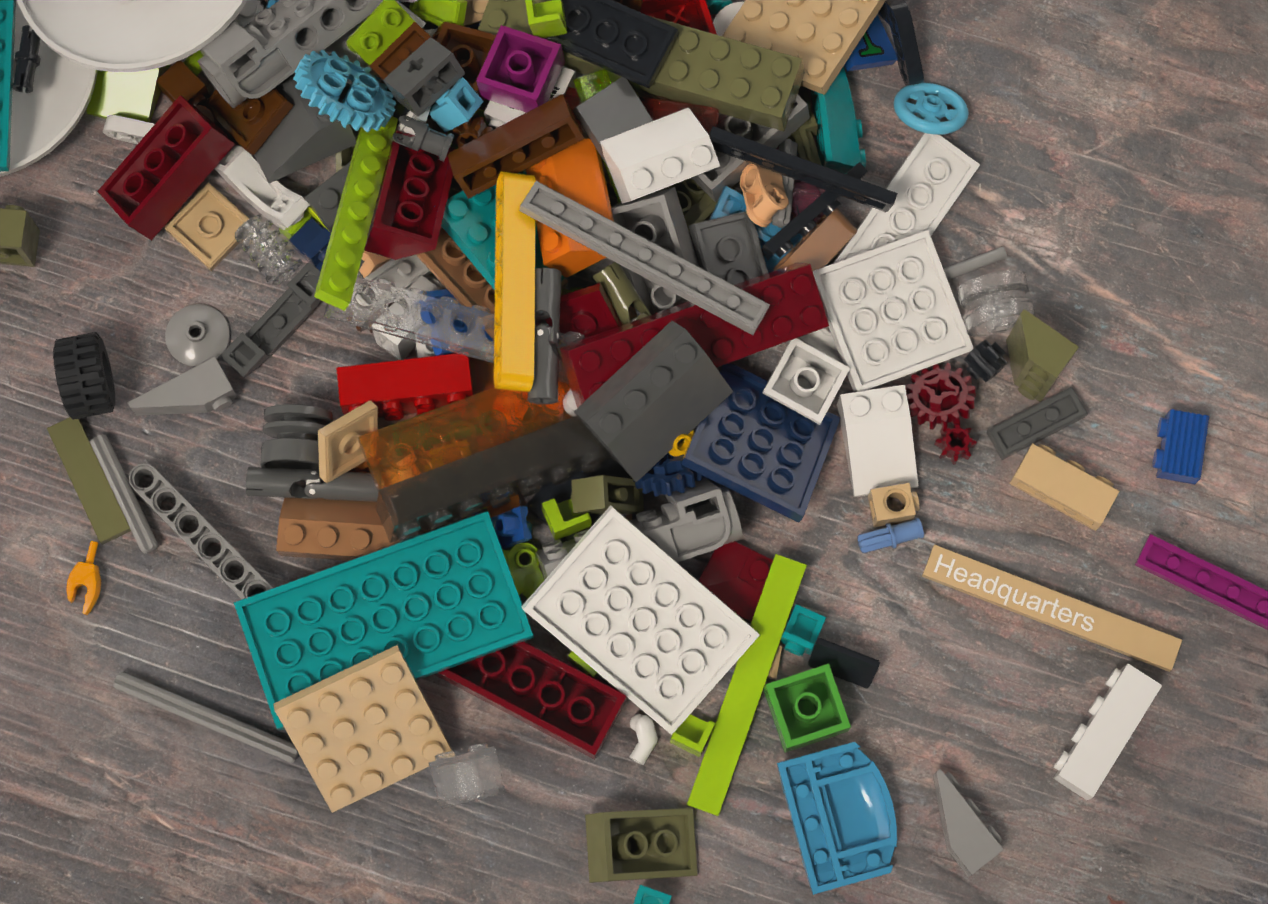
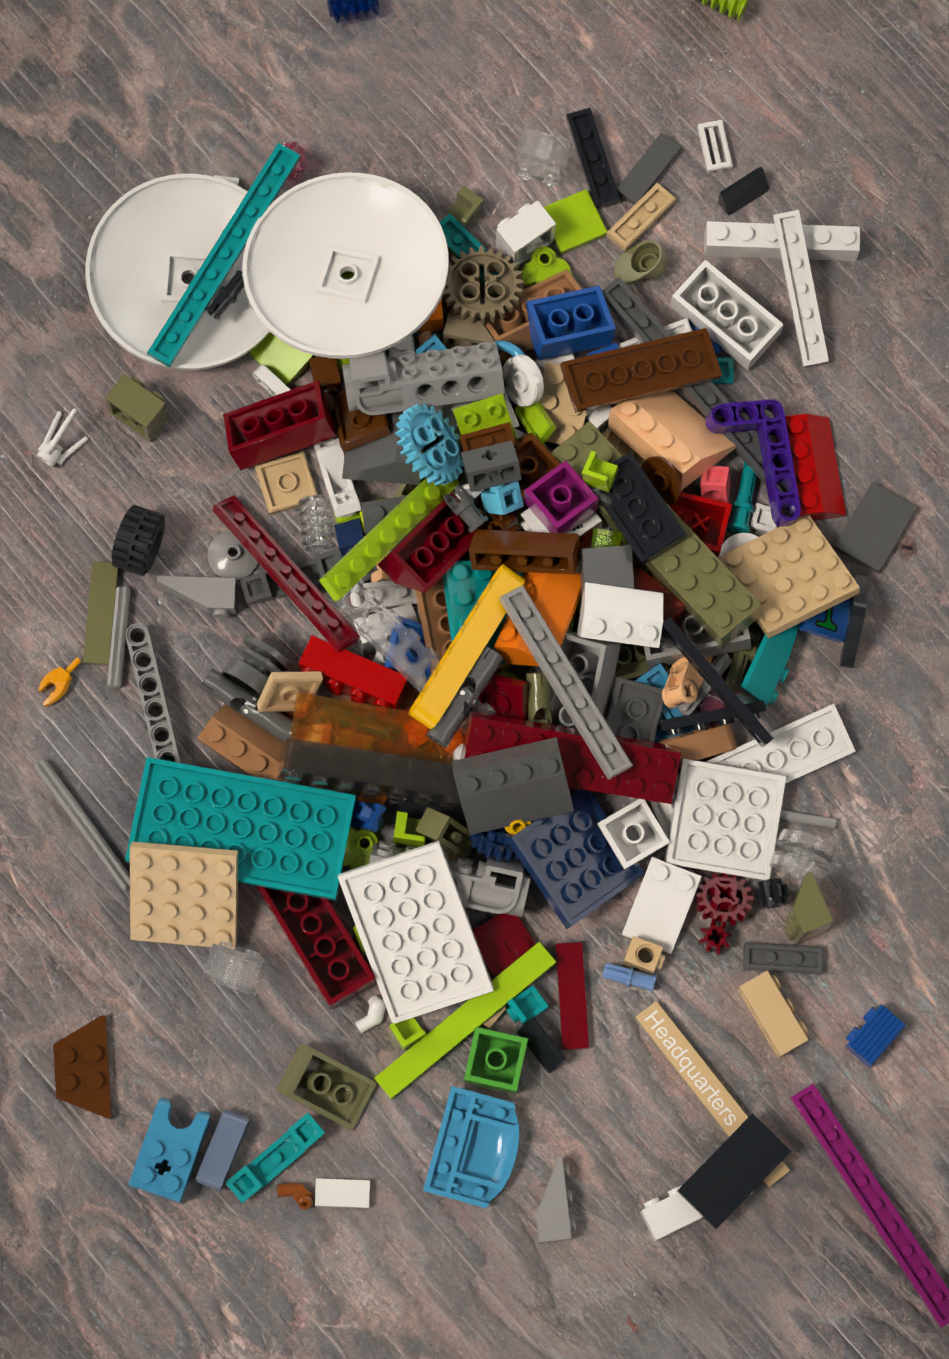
camera: 30 degrees right, 0 degrees up
(268, 320) = (286, 573): none -> dark red tile
(843, 592) = (572, 996): none -> dark red tile
(931, 108) = (844, 691): medium azure plate -> none
(1130, 675) = (734, 1171): none -> black tile

